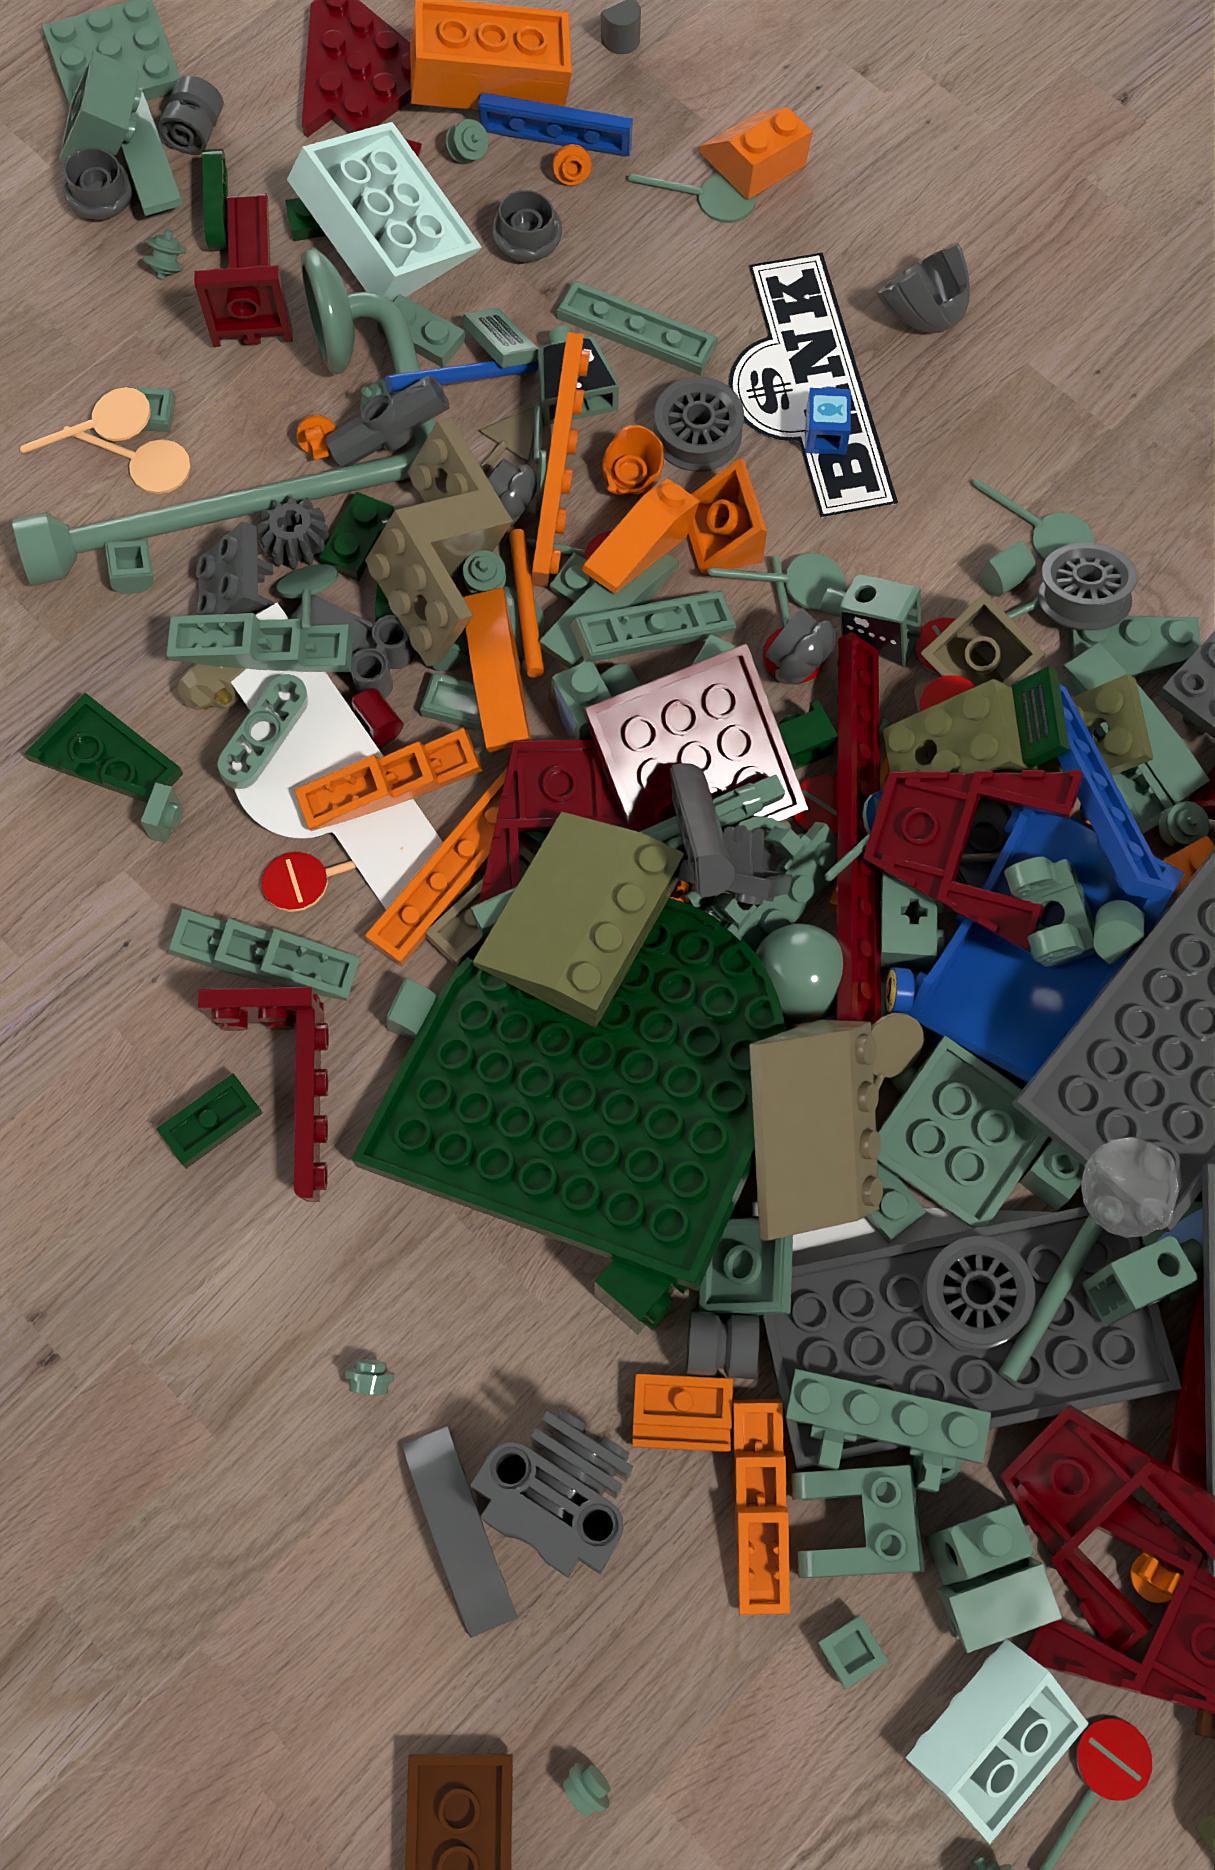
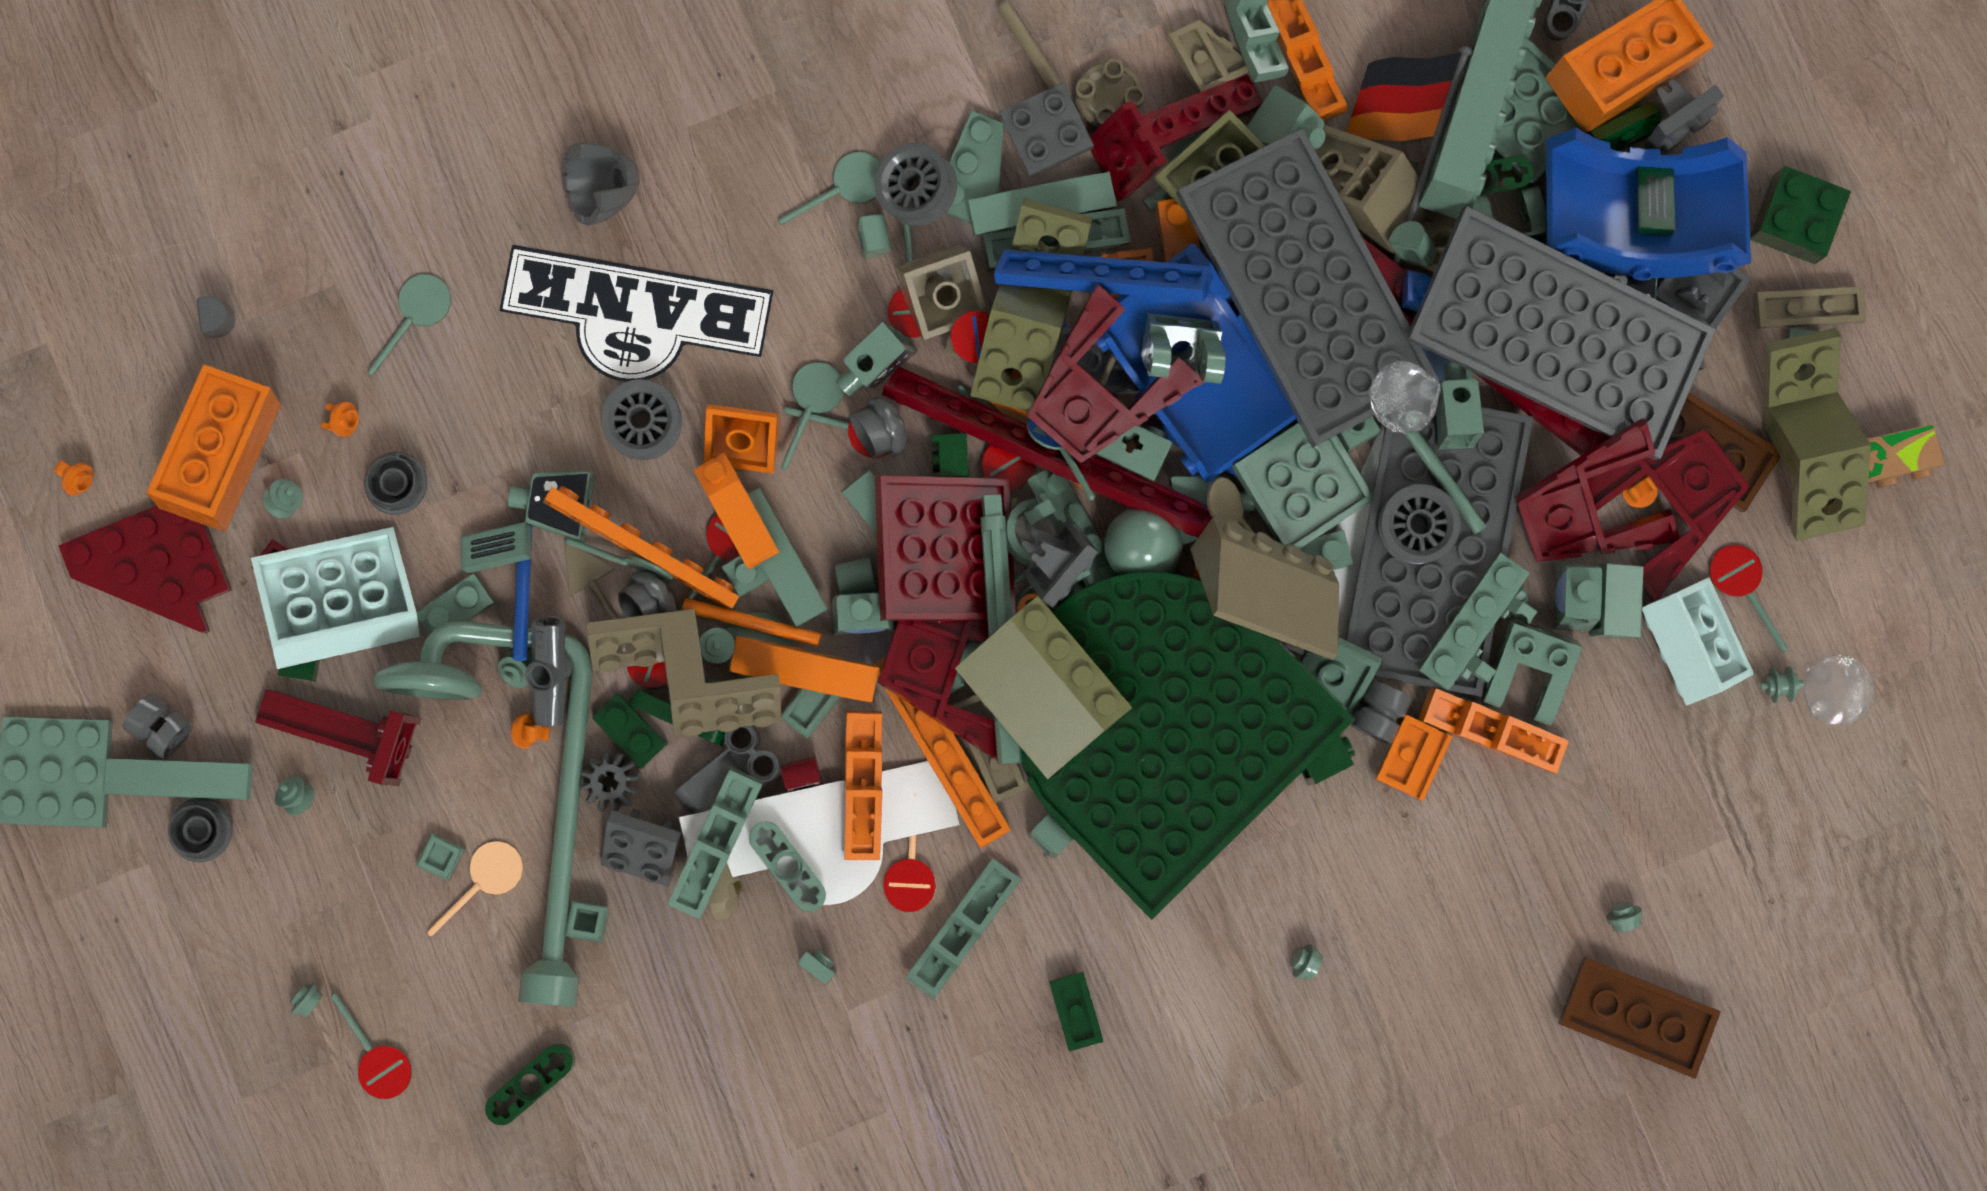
camera: 65 degrees left, 15 degrees up
(102, 107) = (135, 804): sand green slope -> none
(103, 751) = (746, 993): dark green wing -> none
(115, 418) = (439, 886): light nougat piece -> none
(215, 198) = (253, 733): dark green beam -> none
(280, 1011) = (1019, 935): dark red bracket -> none
(306, 582) = (662, 786): sand green piece -> none
(459, 1532) = (1429, 939): dark grey slope -> none
(556, 124) = (296, 416): blue tile -> none
(557, 1493) = (1439, 864): dark grey piece -> none
(633, 461) = (660, 488): orange hair -> none
(637, 327) = (525, 429): sand green tile -> none
(652, 626) = (817, 533): sand green plate -> none
(701, 830) = (1023, 575): dark grey brick -> none
(760, 150) = (391, 257): orange slope -> none
(828, 420) = (683, 315): blue brick -> none
(852, 1652) = (1608, 710): sand green plate -> none
(899, 990) = (1189, 481): blue tile -> none
(1040, 717) = (1032, 287): dark green tile -> none
(1117, 929) = (1218, 313): sand green brick -> none
(1183, 824) = (1137, 210): sand green wheel -> none

